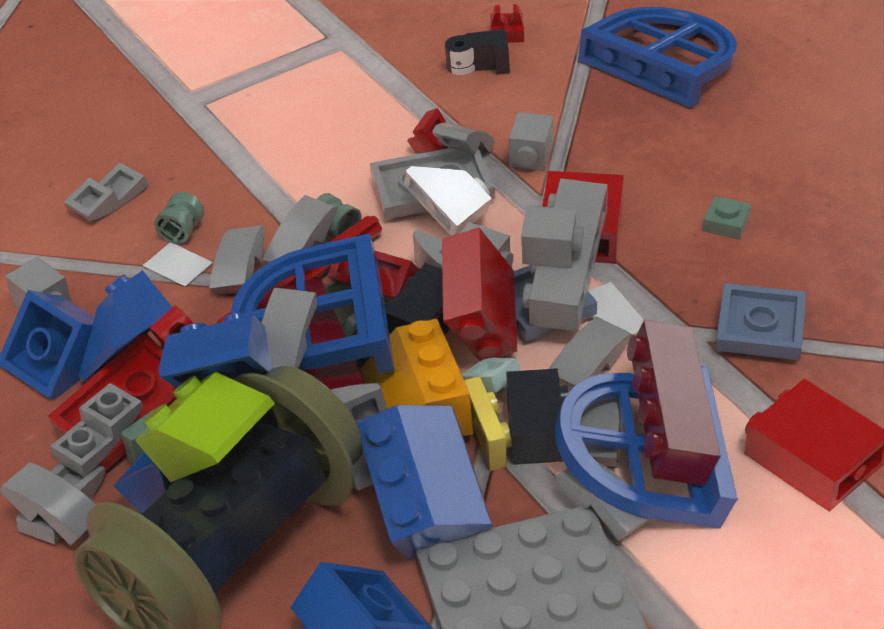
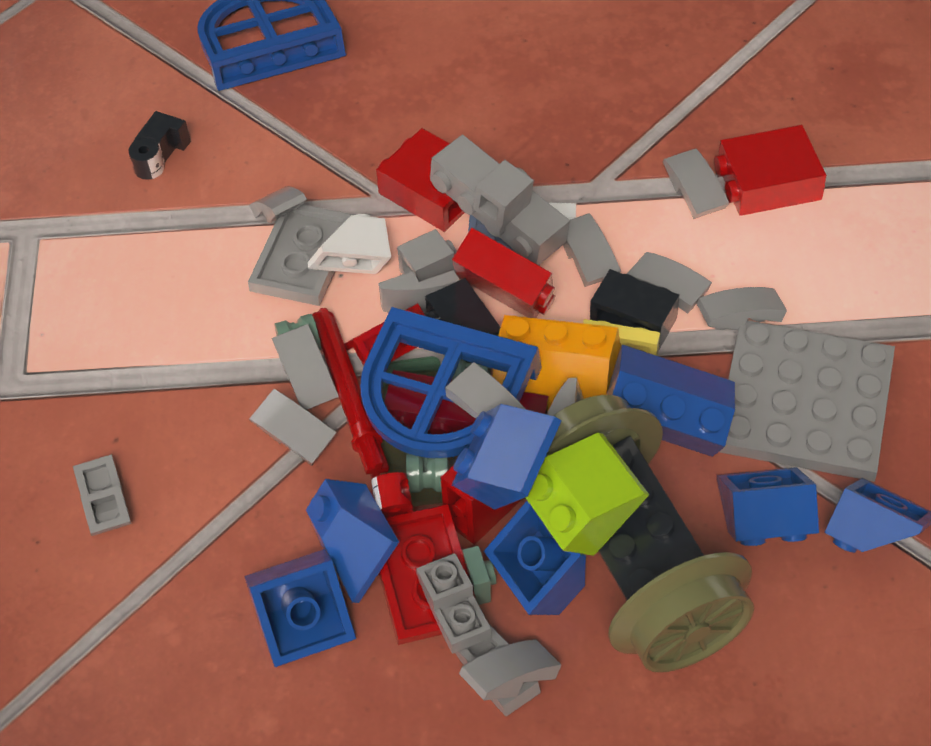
camera: 60 degrees left, 10 degrees up
(38, 277) = (214, 594): light grey brick -> none
(177, 264) = (246, 479): white sticker -> none
(178, 219) = (197, 446): sand green wheel -> none
(424, 138) = (243, 225): red tile -> none
(493, 372) = (569, 310): light aqua plate -> none
(511, 22) = (130, 111): red tile -> none
(531, 141) = (312, 166): light grey brick -> none
(673, 403) = (696, 218): brick -> none
(707, 504) = (727, 230): blue window -> none
(727, 217) = (497, 100): sand green plate -> none
(749, 392) = (697, 182): none -> light grey slope
(761, 321) = (628, 137): sand blue plate -> none

